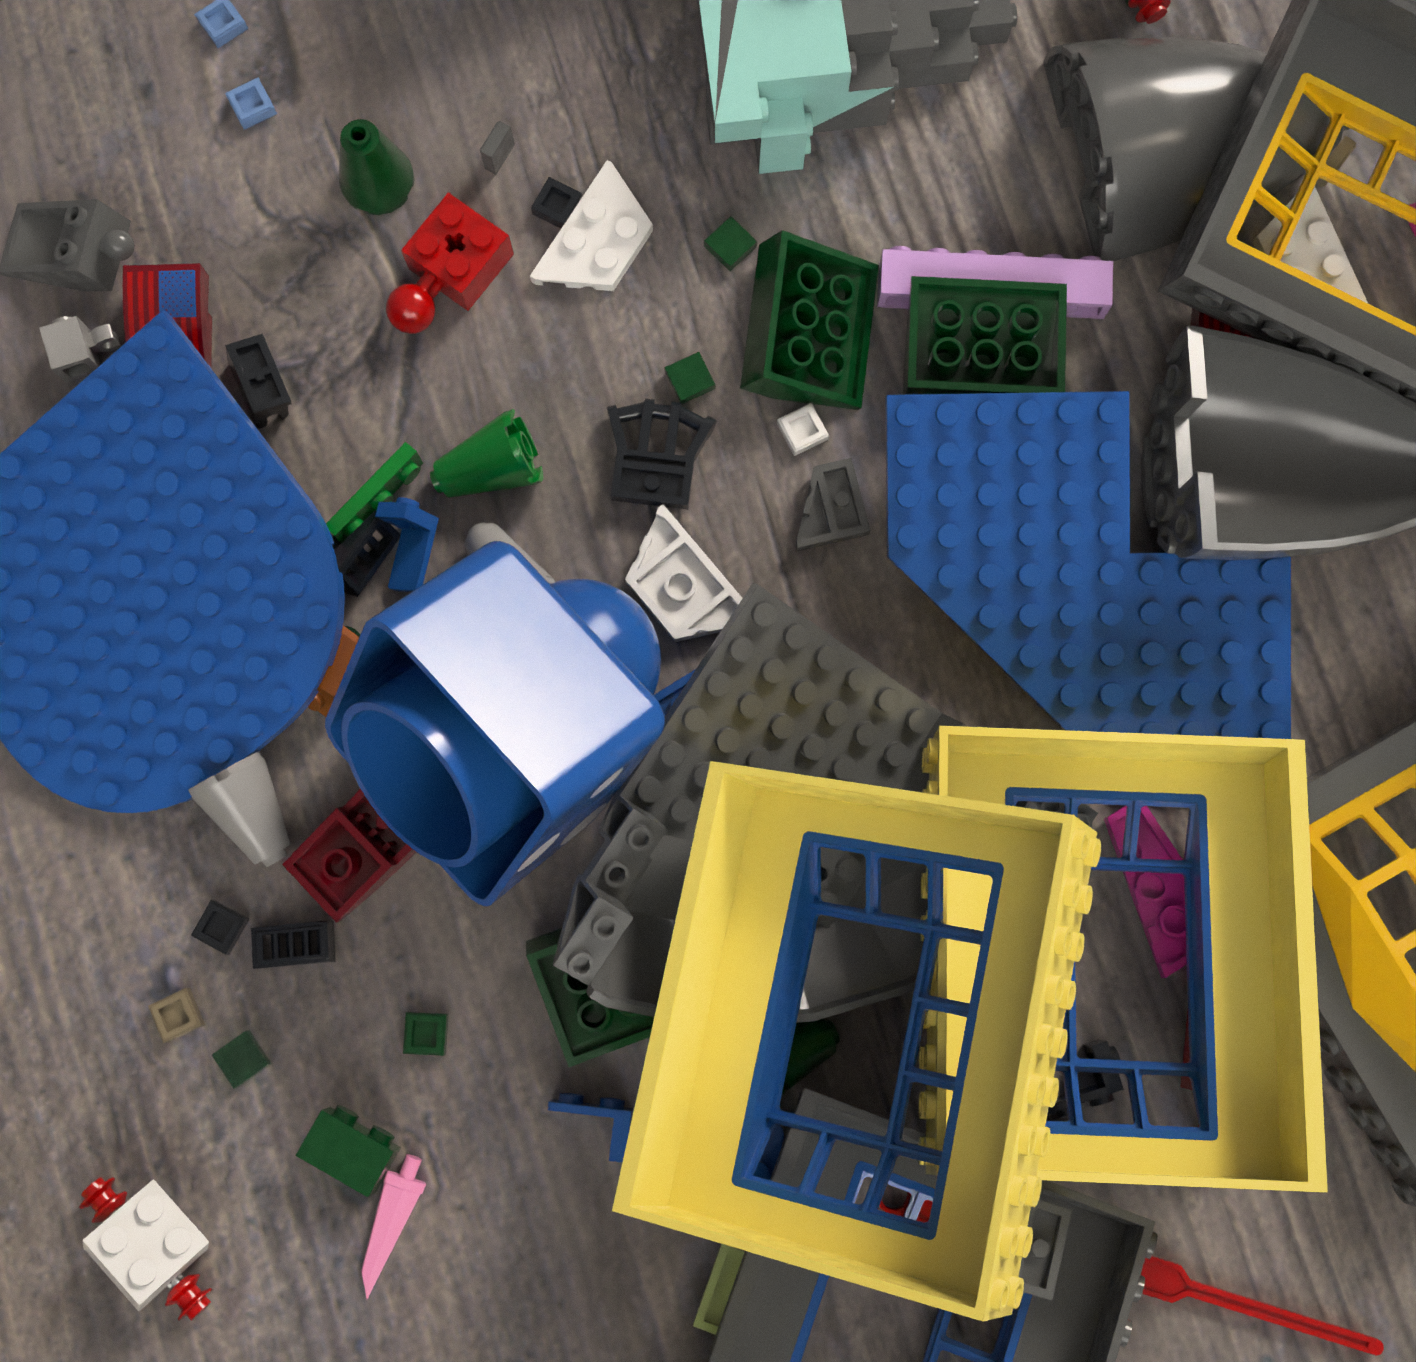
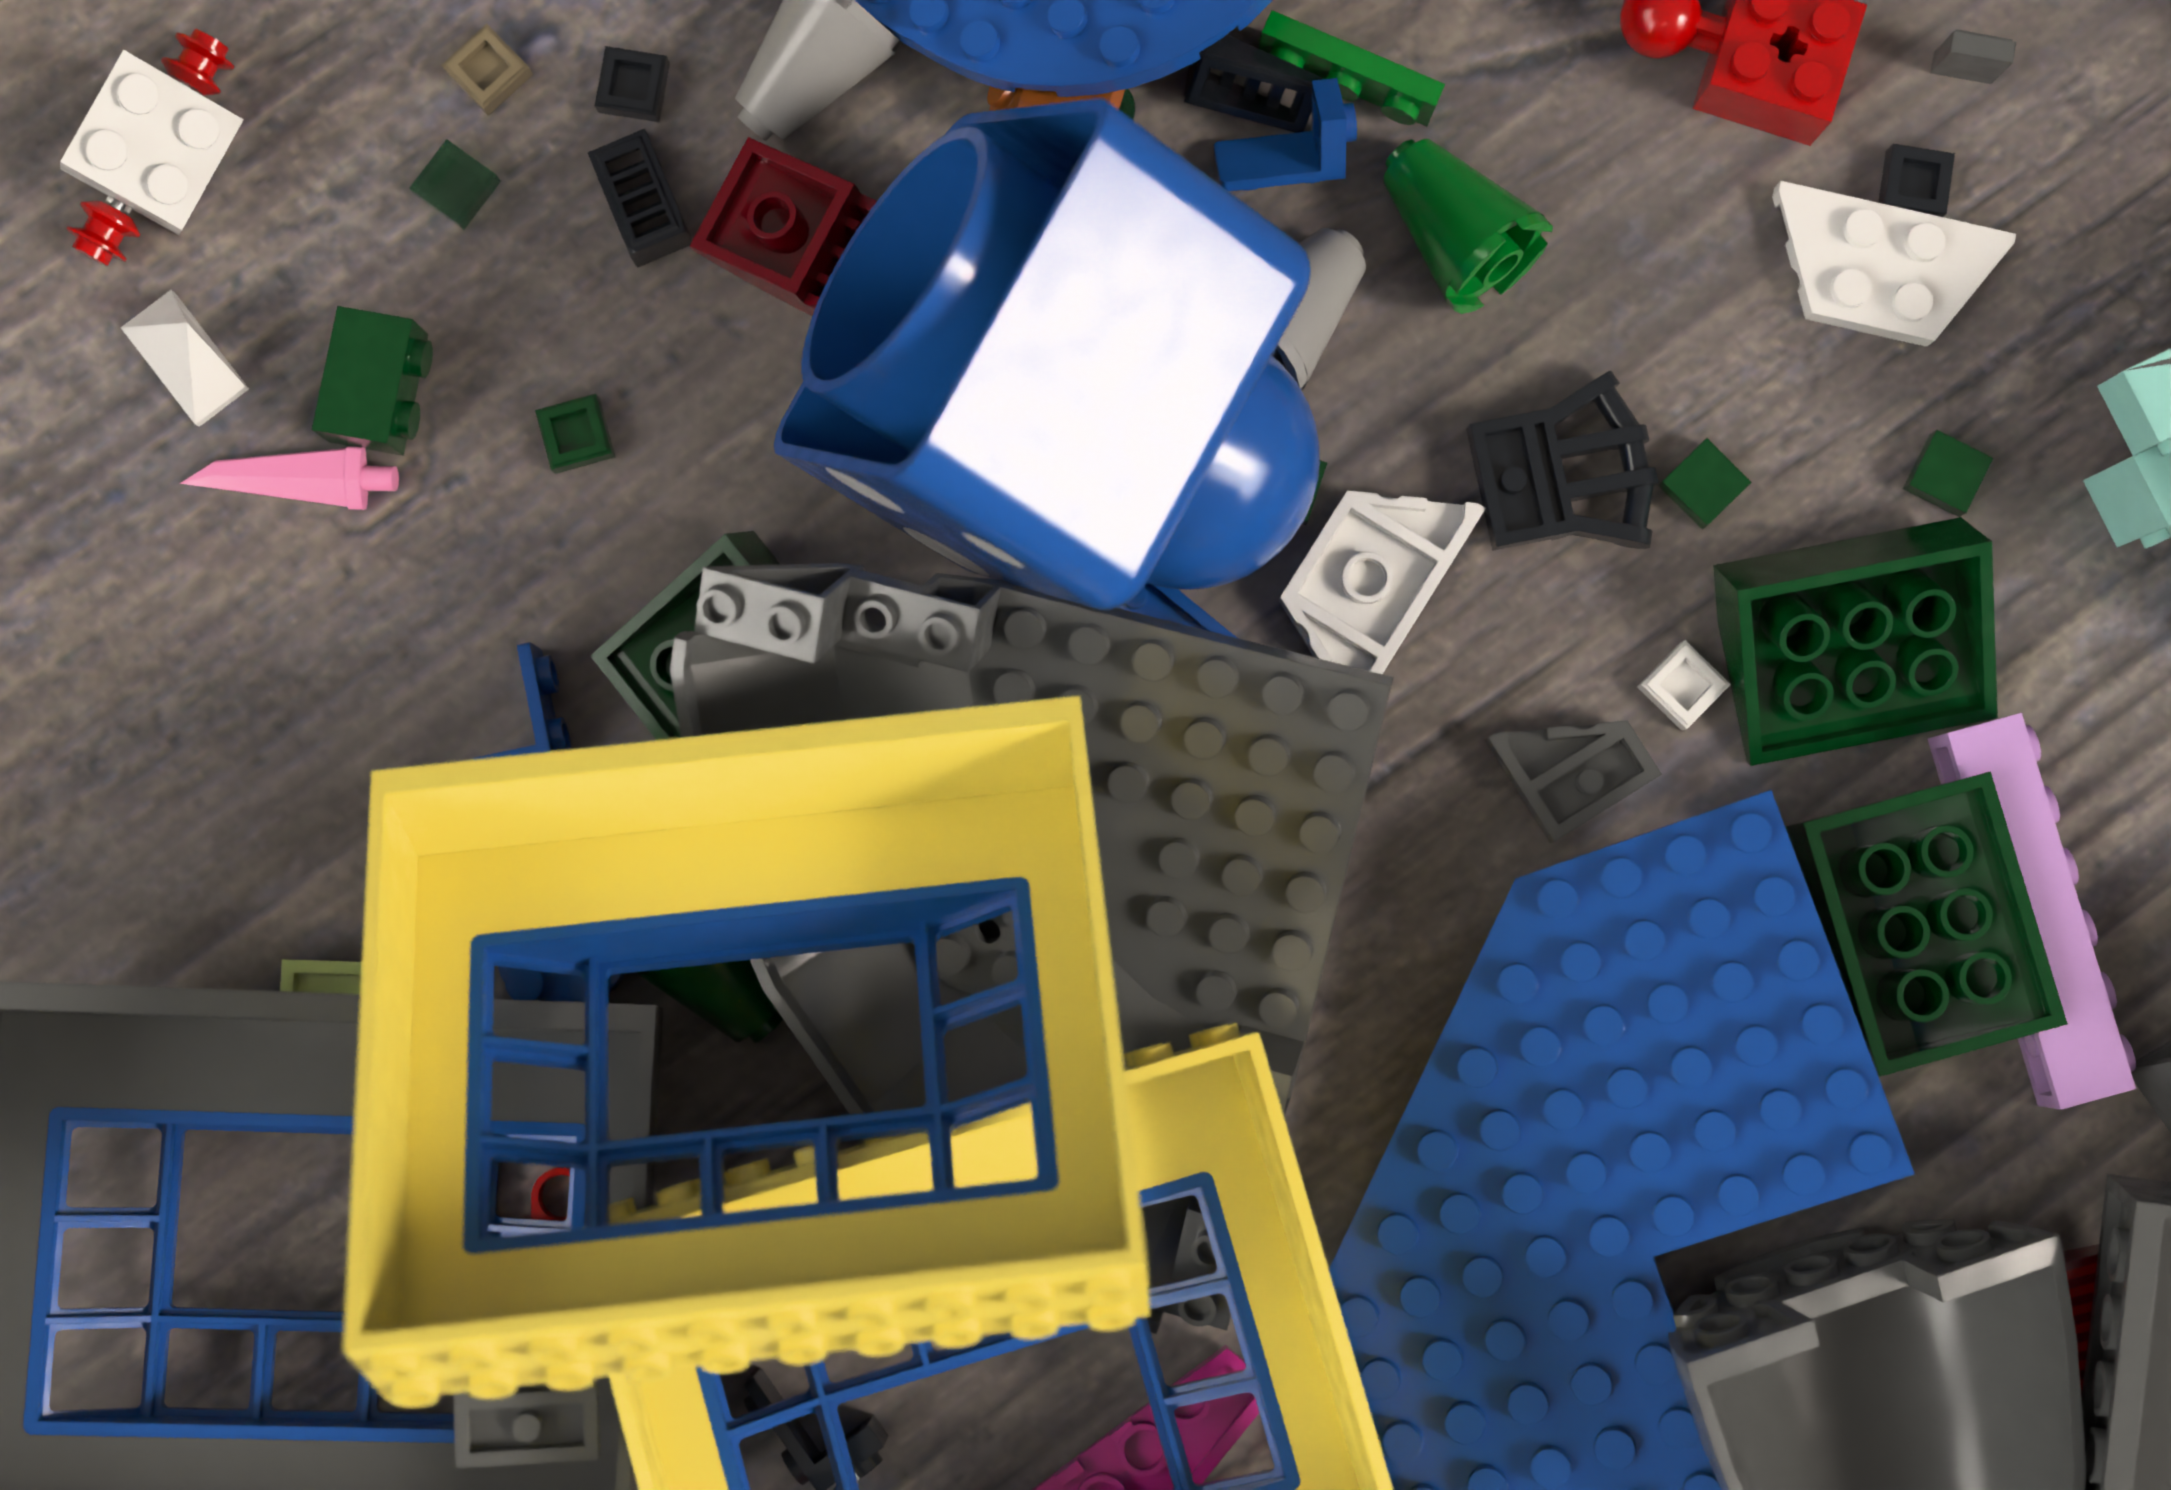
camera: 70 degrees right, 5 degrees up
(288, 1270) = (184, 358): none -> white slope

